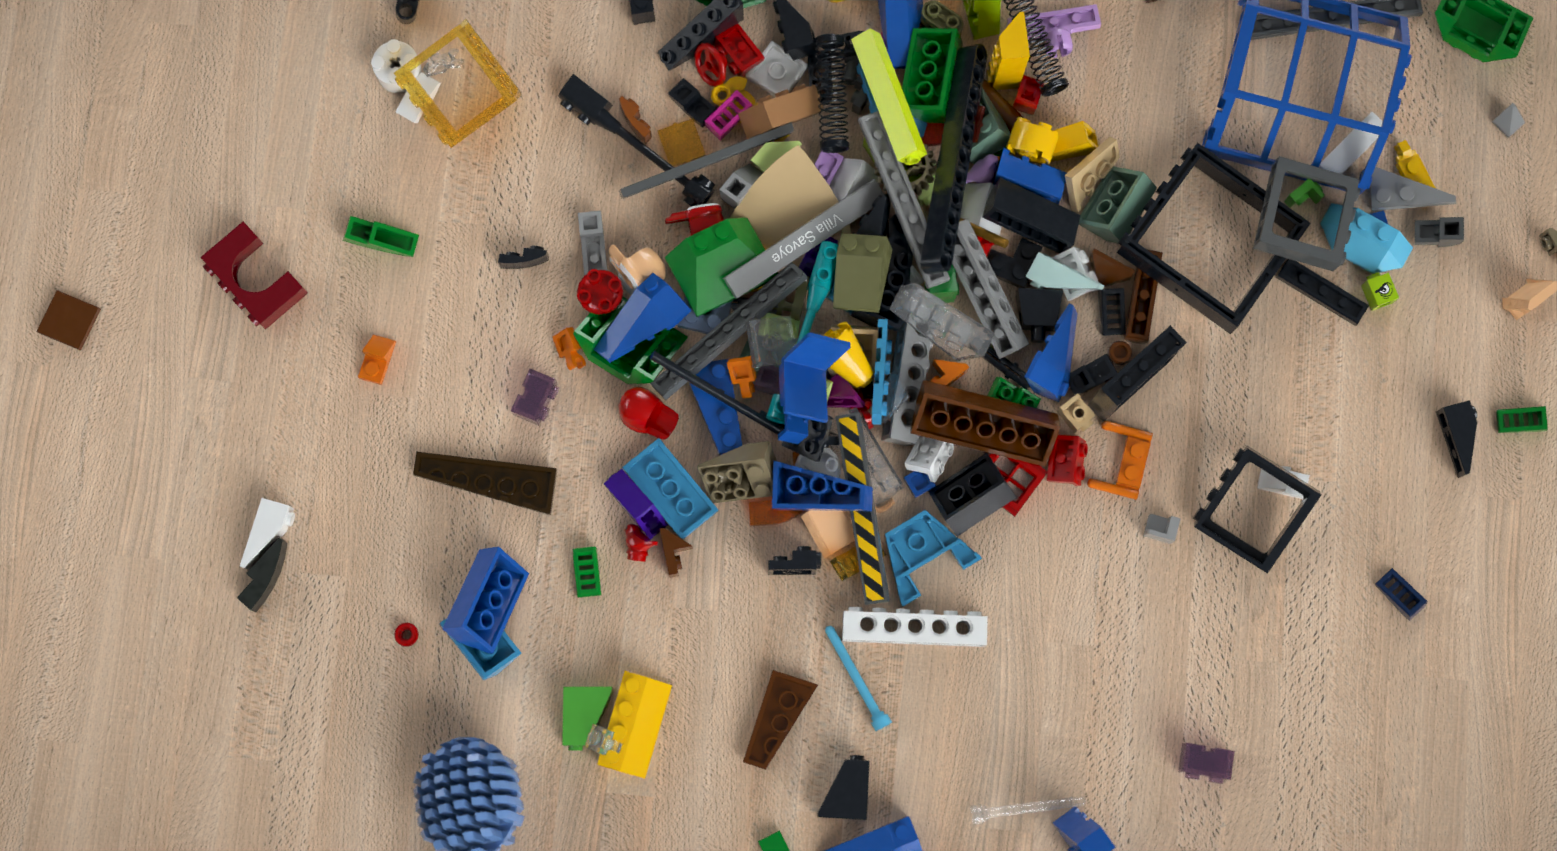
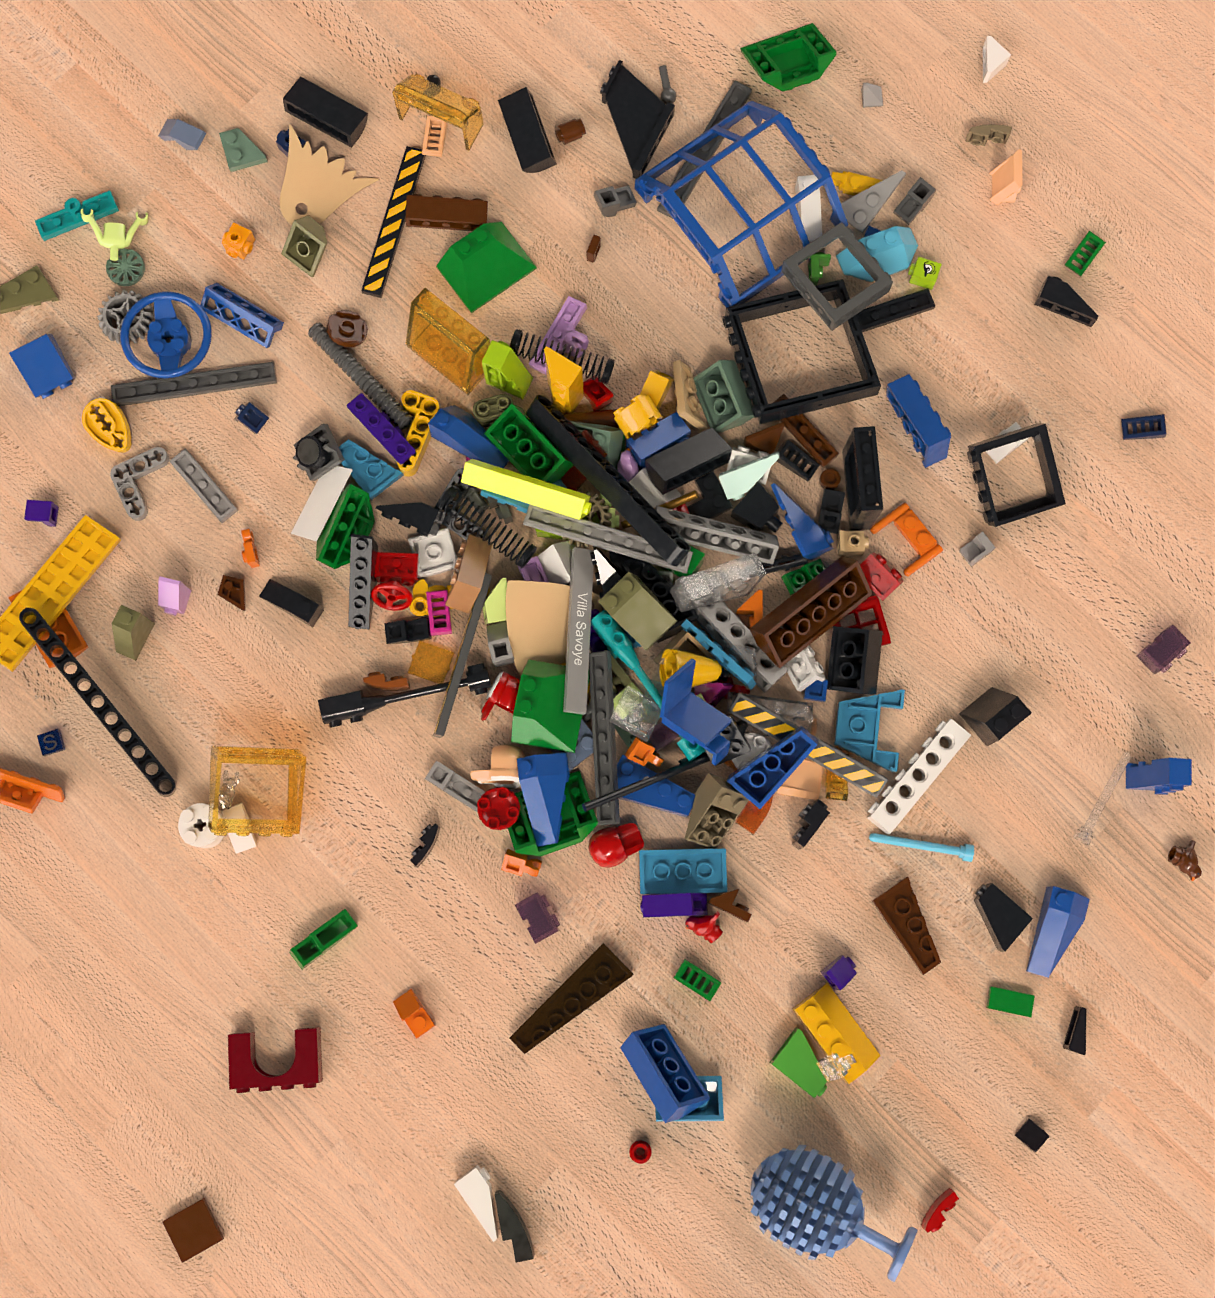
camera: 50 degrees left, 0 degrees up
(688, 686) = (839, 972): none -> dark purple slope
(1021, 653) = (994, 715): none -> black slope
(1238, 387) = (919, 419): none -> blue wedge

